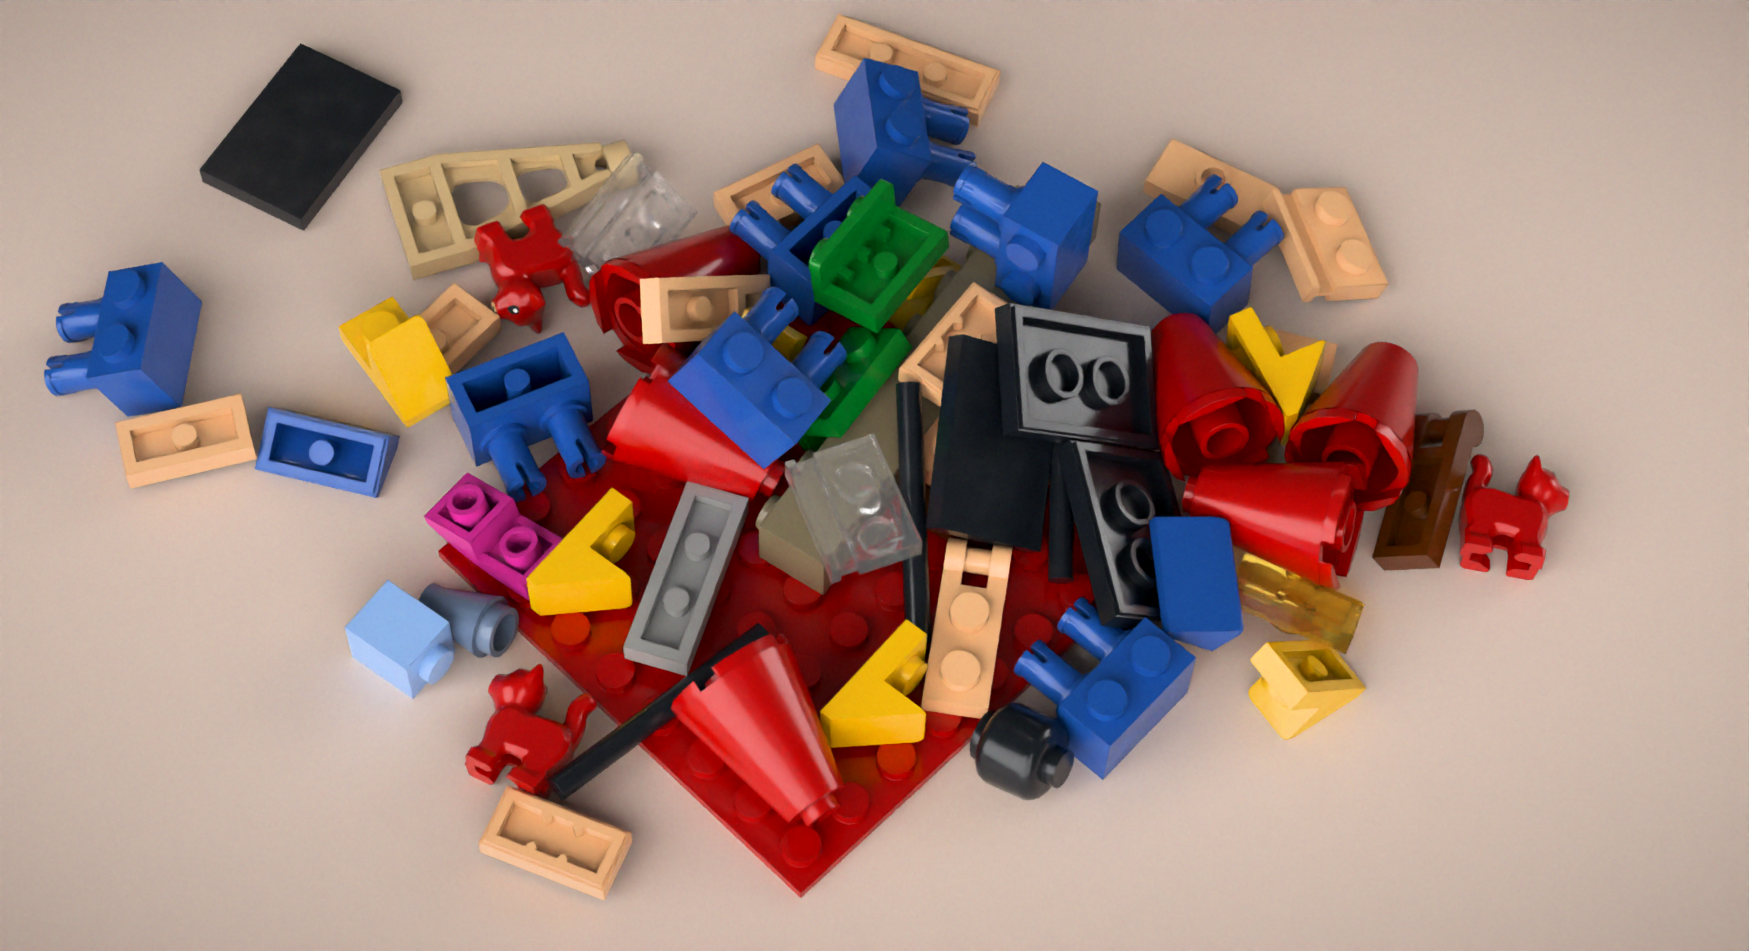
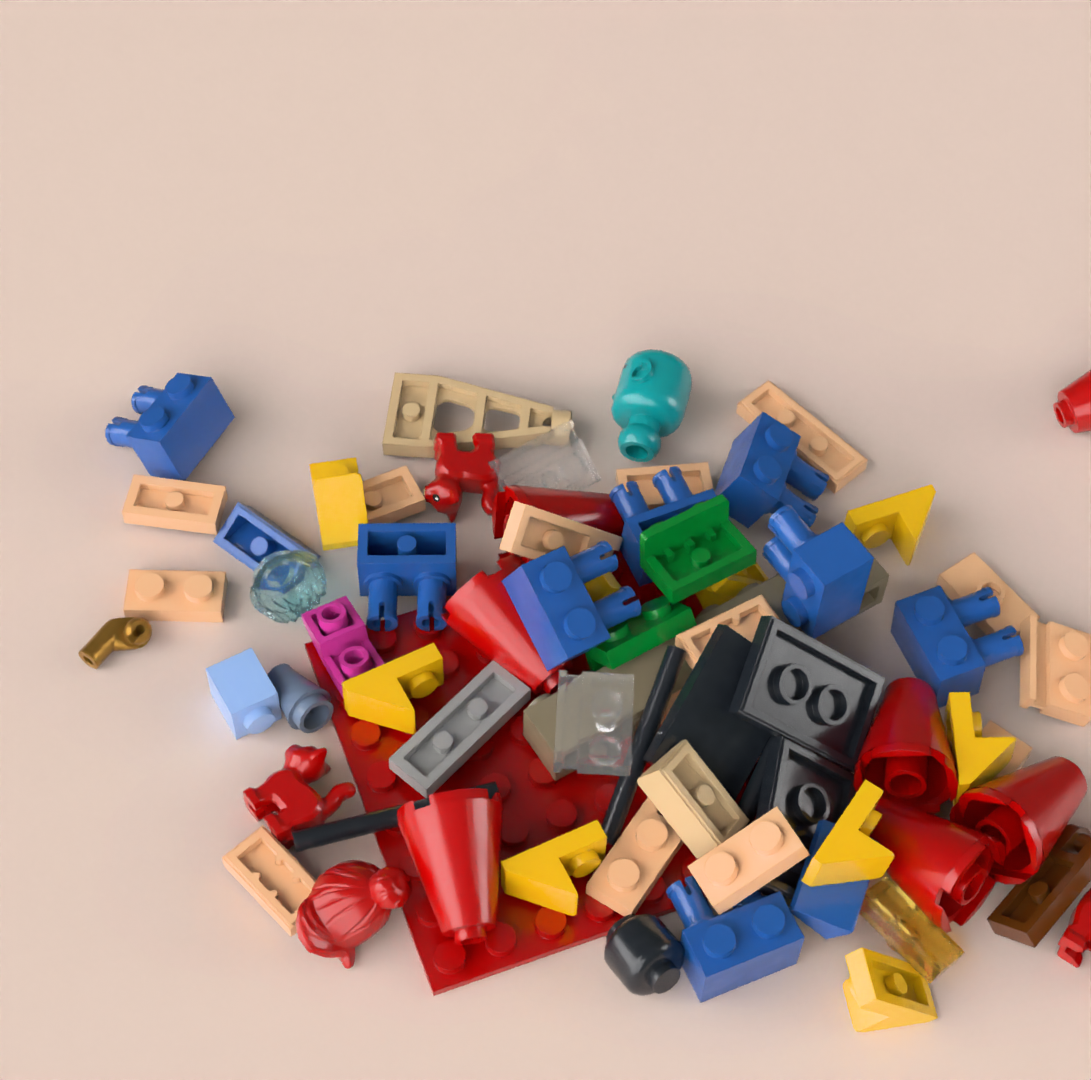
camera: 25 degrees right, 5 degrees down
(199, 632) = (116, 635): none -> pearl gold arm
(246, 554) = (176, 595): none -> light nougat plate
(301, 136) = (358, 334): black tile -> none
(387, 486) = (287, 585): none -> clear light blue hair
(663, 834) = (349, 907): none -> red hair
(713, 93) = (650, 402): none -> teal piece
(1004, 554) = (692, 799): none -> tan slope
(1069, 131) = (893, 518): none -> yellow slope
(1099, 596) = (748, 860): none -> light nougat plate
(1200, 537) = (848, 850): none -> yellow slope

